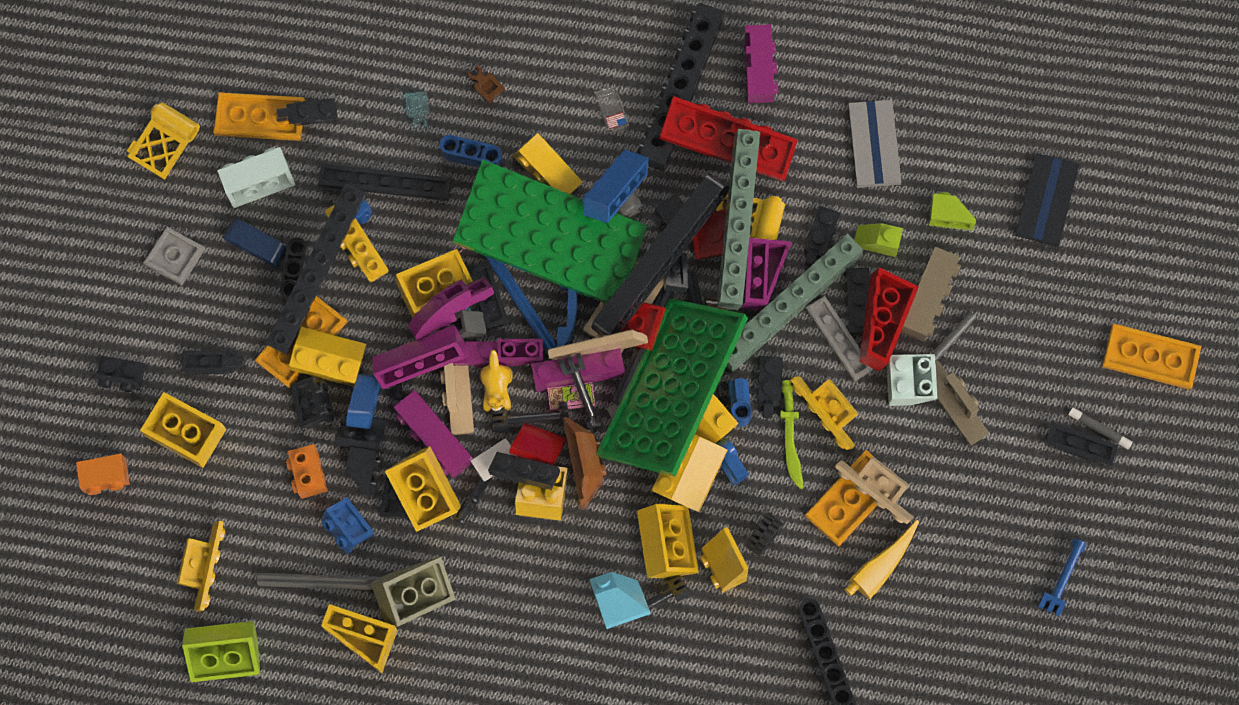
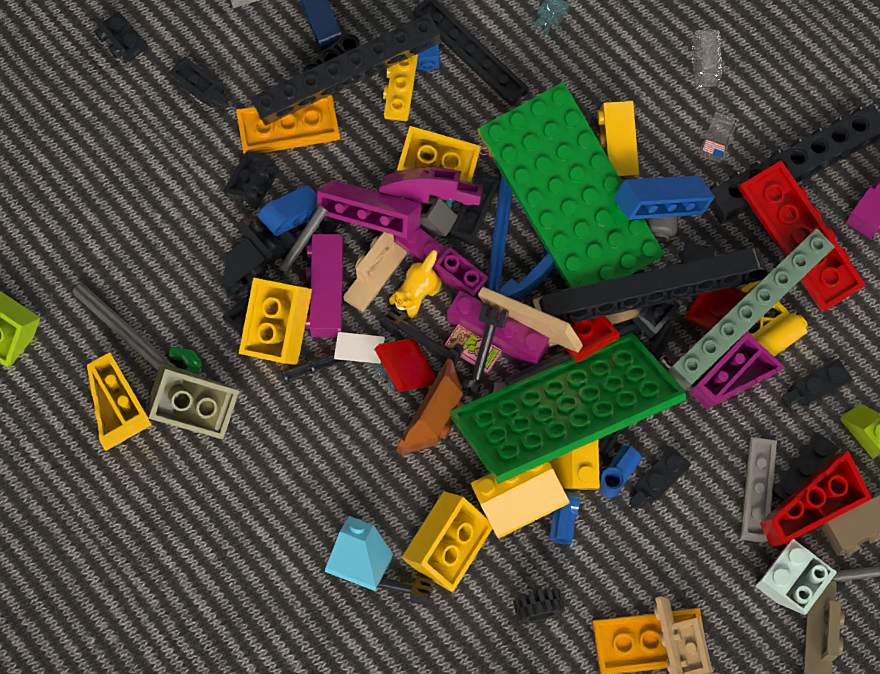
camera: 35 degrees right, 5 degrees down
(103, 474) = (32, 102): orange brick -> none
(183, 429) = (126, 118): yellow brick -> none
(198, 565) = (39, 235): yellow bracket -> none
(307, 471) = (195, 232): orange brick -> none
(327, 356) = (295, 150): yellow slope -> none
(346, 525) = (187, 301): blue bracket -> none
(381, 562) = (188, 357): none -> green arm
(389, 415) = (303, 238): none -> dark grey bar
(463, 145) = (562, 70): blue beam -> none
(487, 86) = (625, 38): reddish brown plate -> none
(524, 470) = (373, 374): black plate -> none
(542, 502) = (374, 406): yellow slope -> none
(557, 57) = (706, 58): none -> clear brick
(724, 561) = (480, 600): yellow slope -> none
(789, 415) = (654, 520): lime sword -> none
(794, 299) = (742, 421): sand green brick -> none
(830, 407) = (698, 543): yellow bracket -> none

